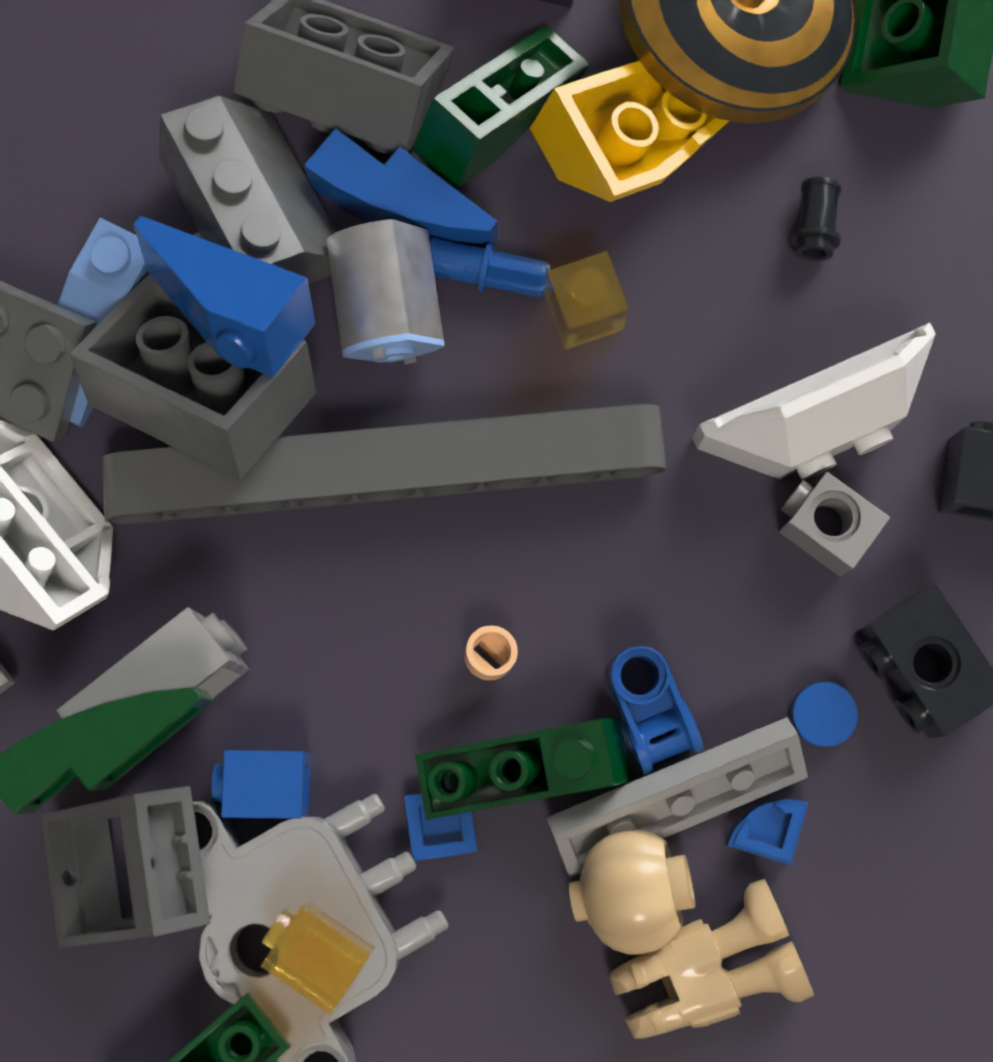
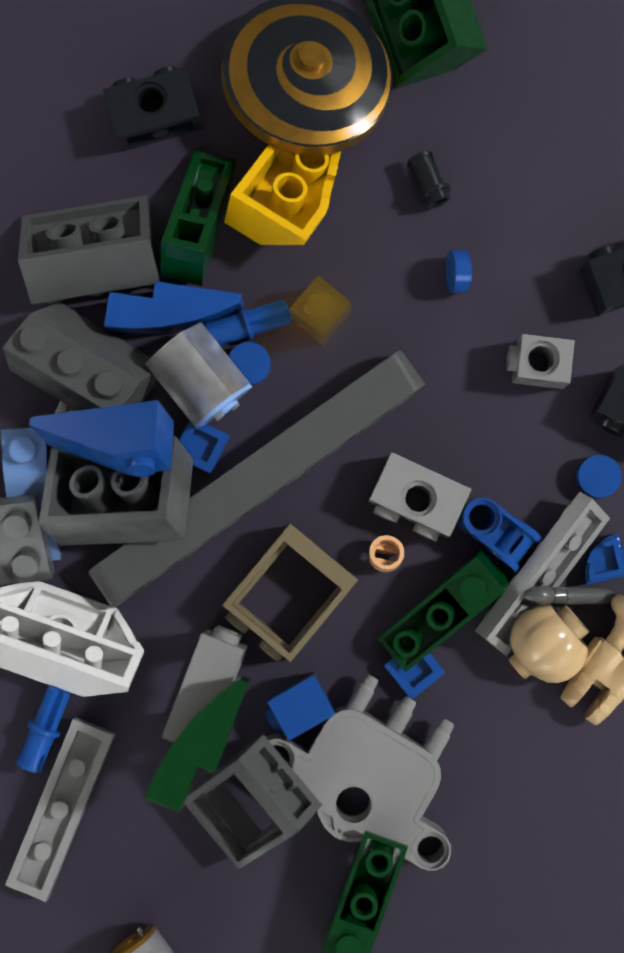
camera: 30 degrees left, 5 degrees up
(261, 631) = (244, 619): none -> dark tan window
(315, 955) = (392, 787): clear yellow brick -> none
(342, 387) = (204, 445): none -> blue tile
(463, 318) = (251, 361): none -> blue tile
(564, 566) = (444, 496): none -> light grey brick
(666, 826) = (569, 595): none -> dark grey piece
(790, 351) = (458, 271): none -> blue tile
(823, 413) = (501, 296): white wedge -> none

